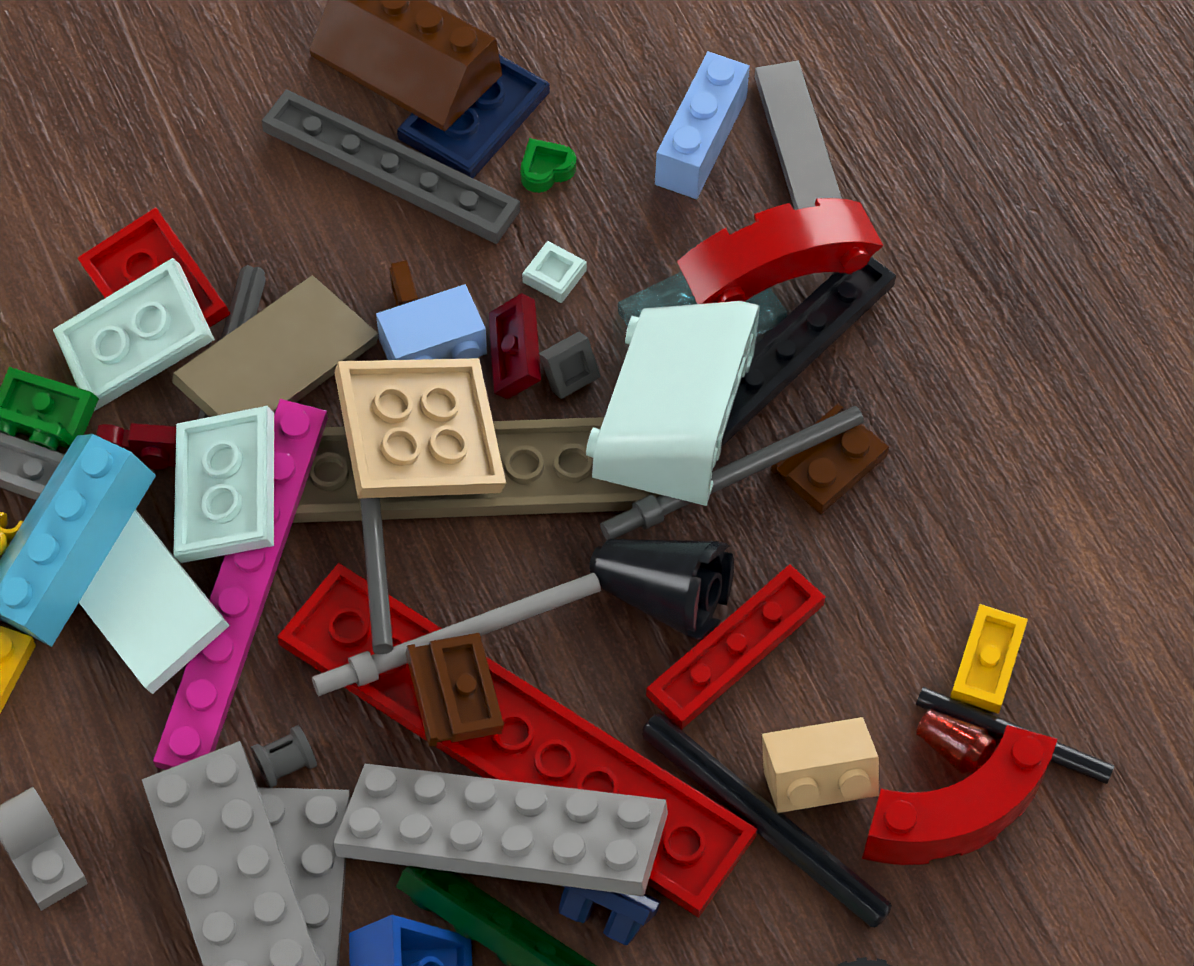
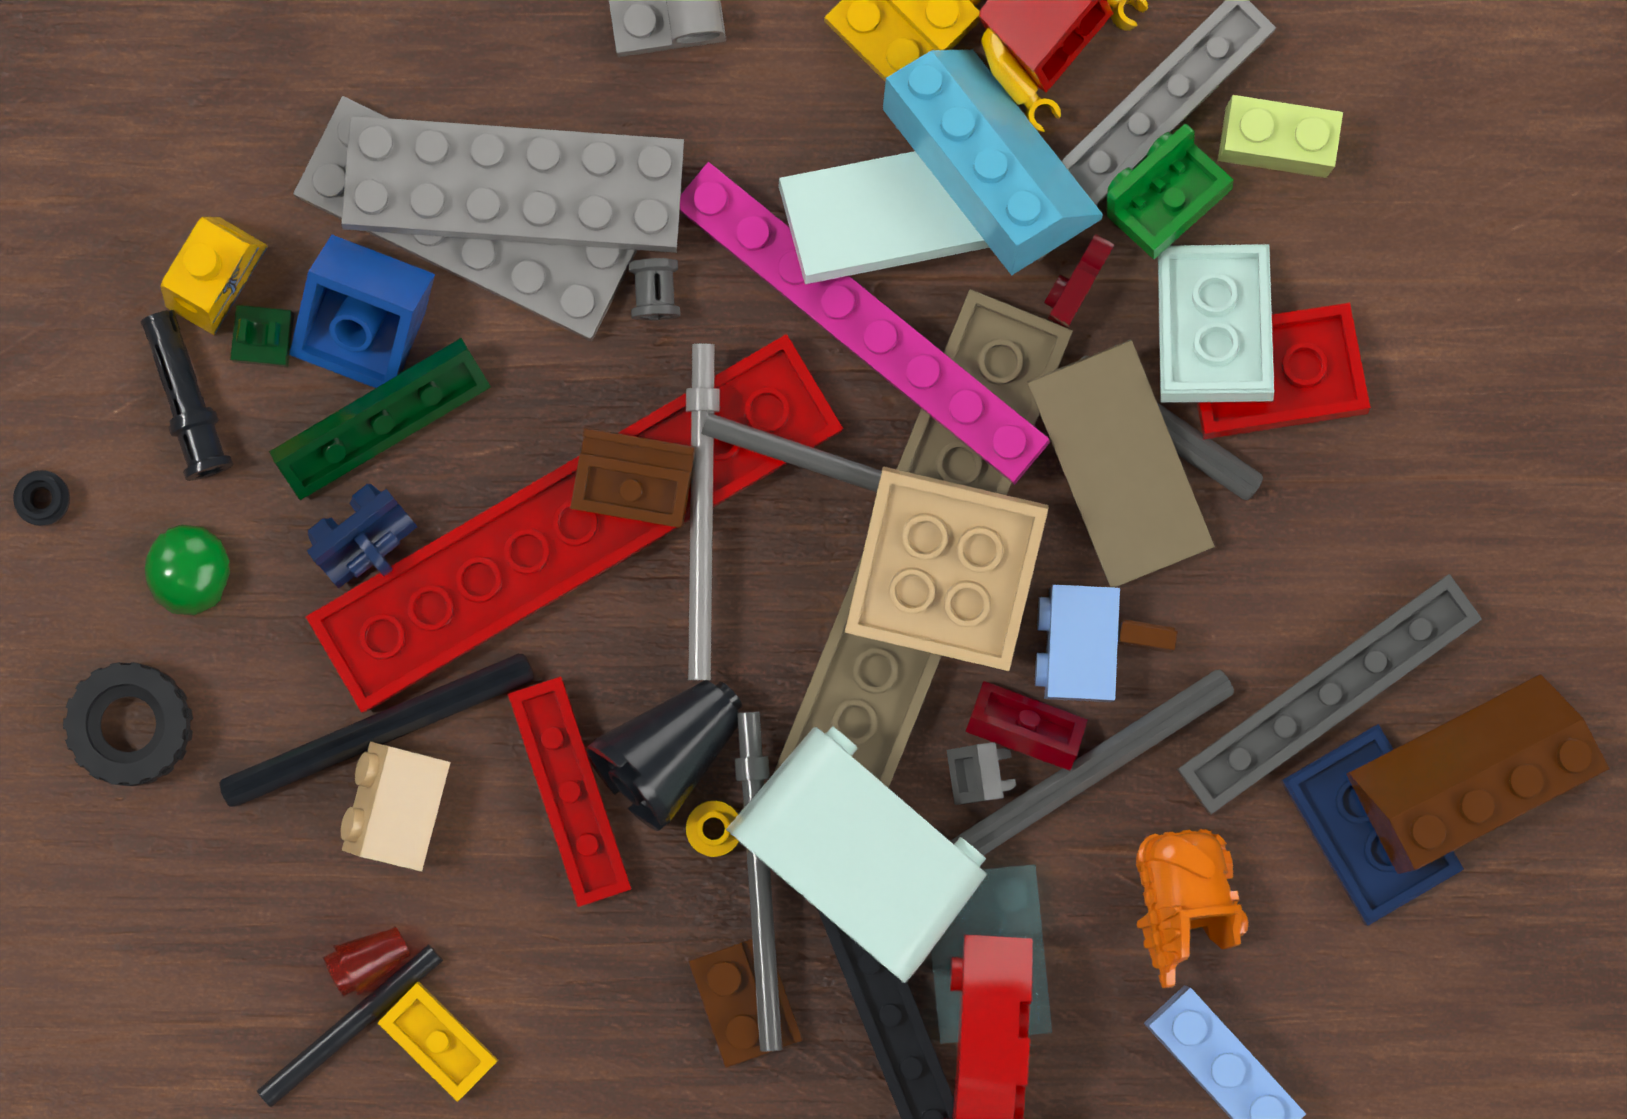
camera: 115 degrees right, 25 degrees up
(224, 484) = (970, 341): light aqua tile -> none
(503, 829) = (464, 460): light grey plate -> none
(506, 286) = (1098, 762): none -> dark grey axle
(546, 164) = (1261, 872): green tile -> none
(554, 271) = (1112, 817): light aqua tile -> none
(593, 188) = (1186, 891): none -> orange helmet
(713, 518) = (695, 824): none -> yellow plate
(965, 815) = (280, 928): red brick -> none

